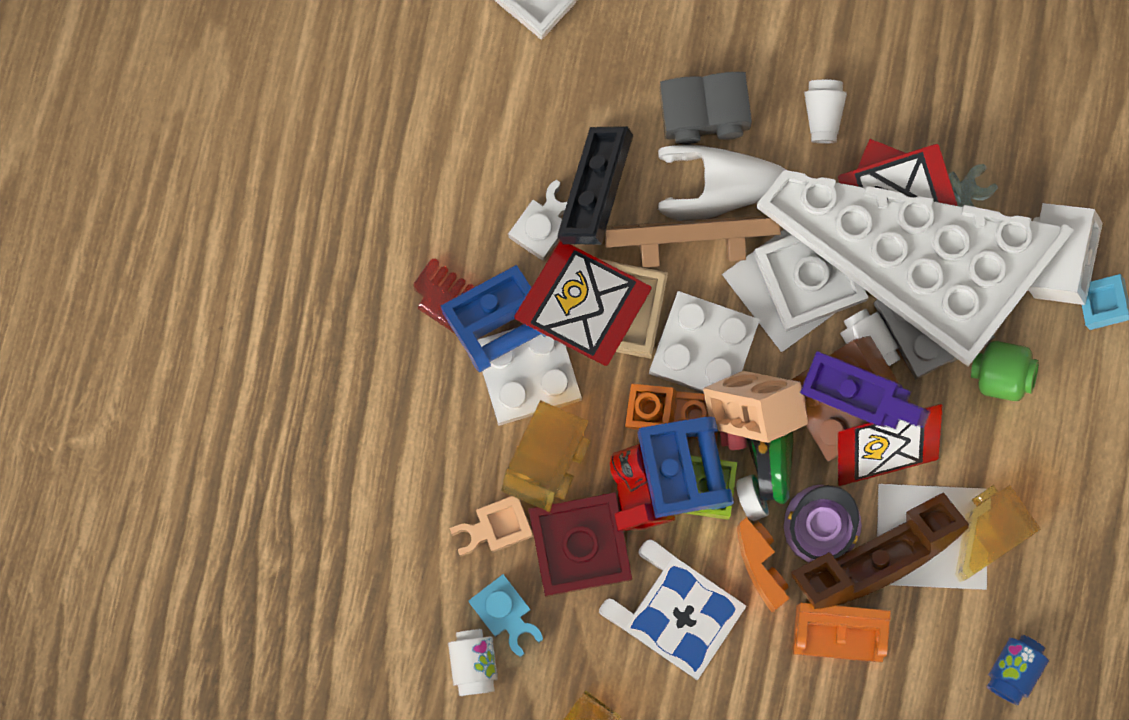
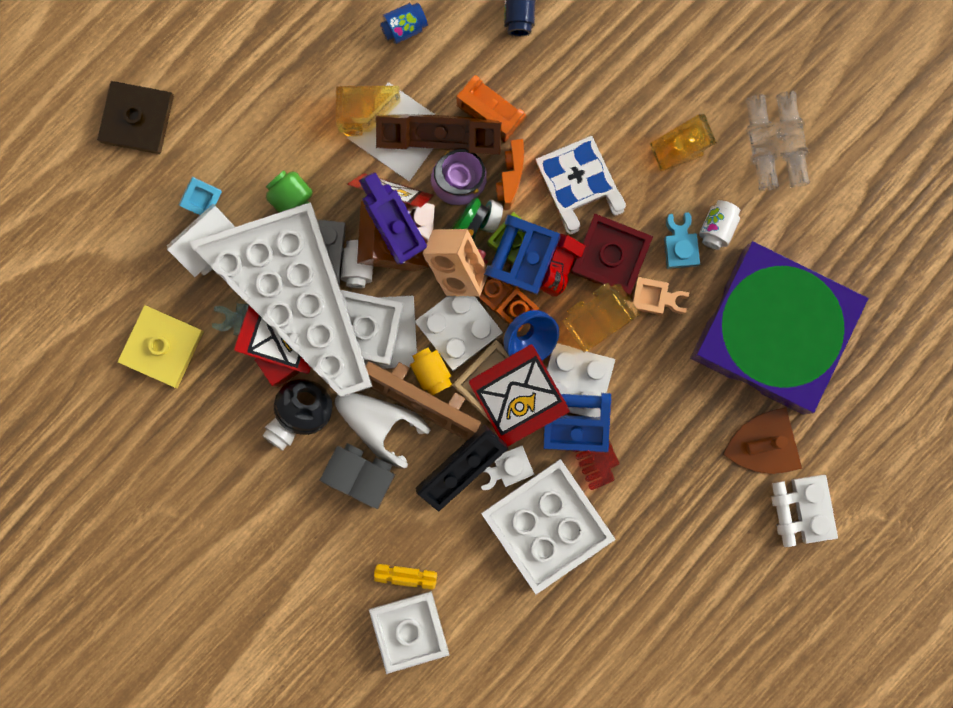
camera: 150 degrees left, 5 degrees up
(162, 399) = (813, 510): none -> white plate
(261, 439) = (765, 444): none -> dark orange shield
(326, 578) = (779, 328): none -> green tile
(456, 187) = (548, 526): none -> white plate
(580, 36) = (405, 576): none -> yellow axle
(601, 385) = (542, 333): none -> blue piece
(702, 273) = (430, 371): none -> yellow brick
(813, 122) = (298, 417): none -> black piece
(1026, 110) = (160, 346): none -> light yellow plate

